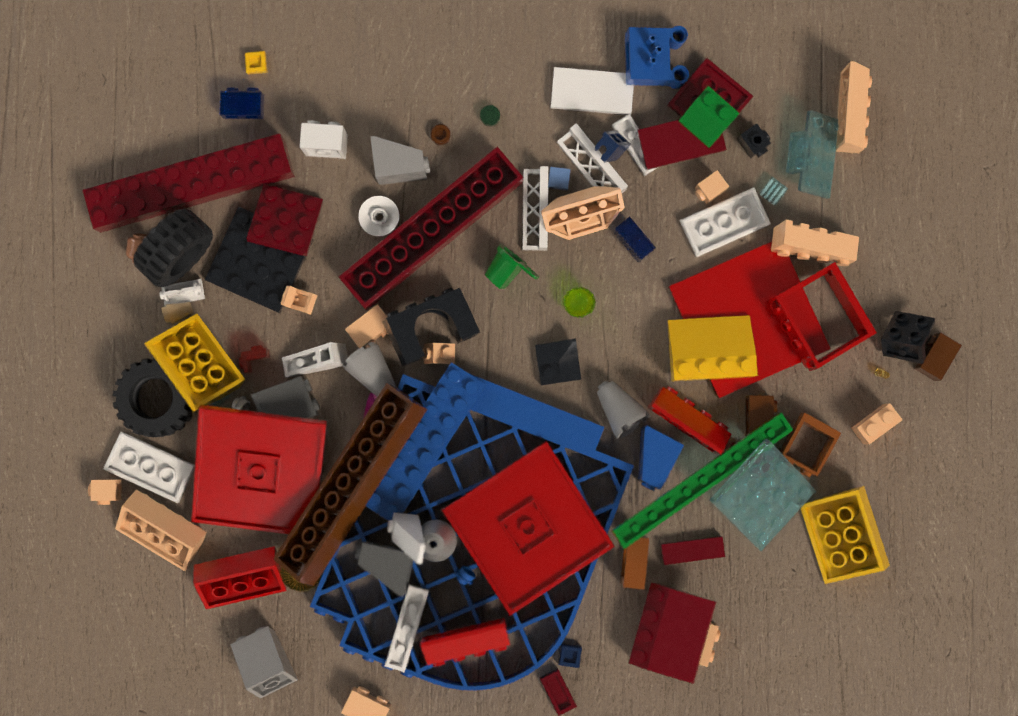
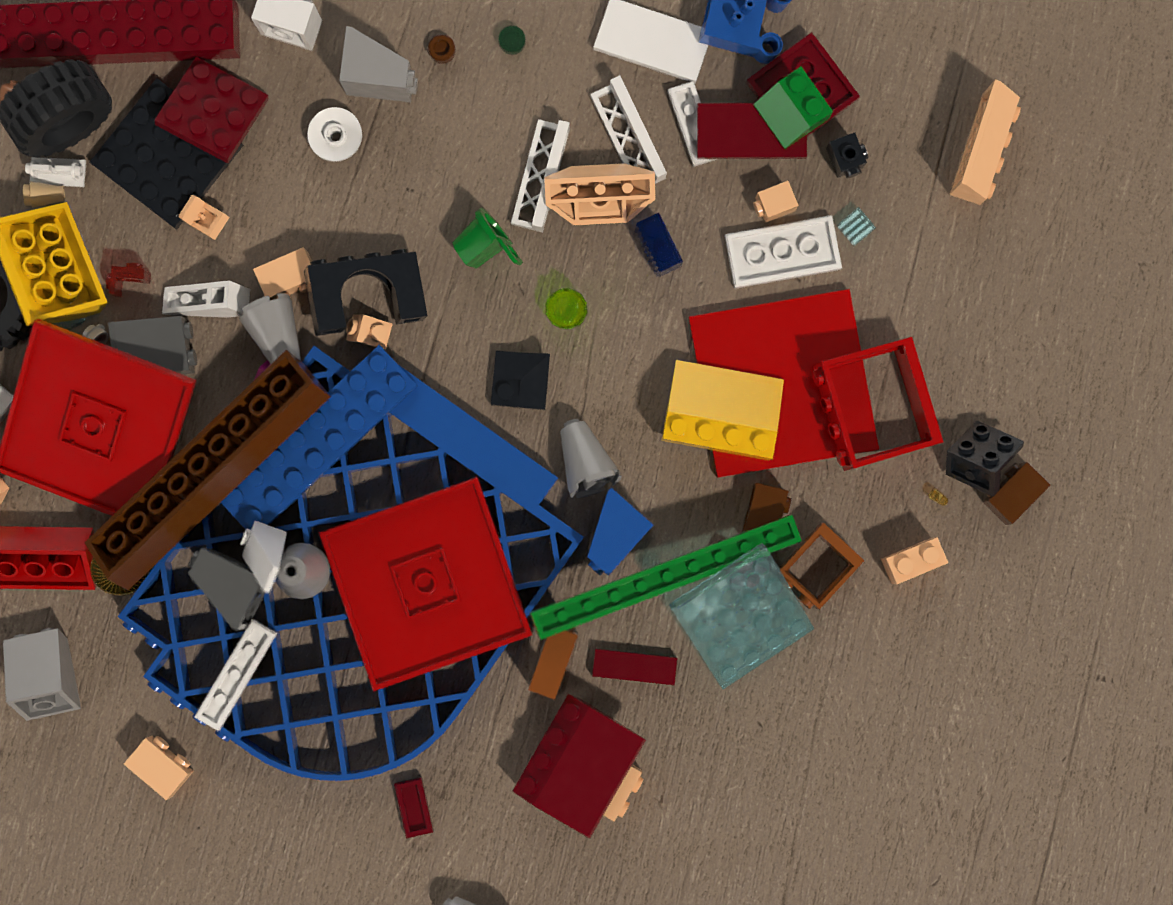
camera: 10 degrees right, 0 degrees up
(431, 228) = (398, 167): dark red brick -> none
(465, 575) = (328, 625): blue plate -> none
(465, 641) = (306, 711): red slope -> none
(559, 178) = (581, 142): medium blue tile -> none
(570, 655) = (441, 764): dark blue tile -> none
(614, 144) = (662, 118): dark blue hinge -> none
(689, 420) = (672, 497): red slope -> none
(813, 154) = (920, 191): clear light blue bracket -> none
(814, 243) = (891, 307): light nougat wedge -> none
(845, 535) = (837, 695): yellow slope -> none

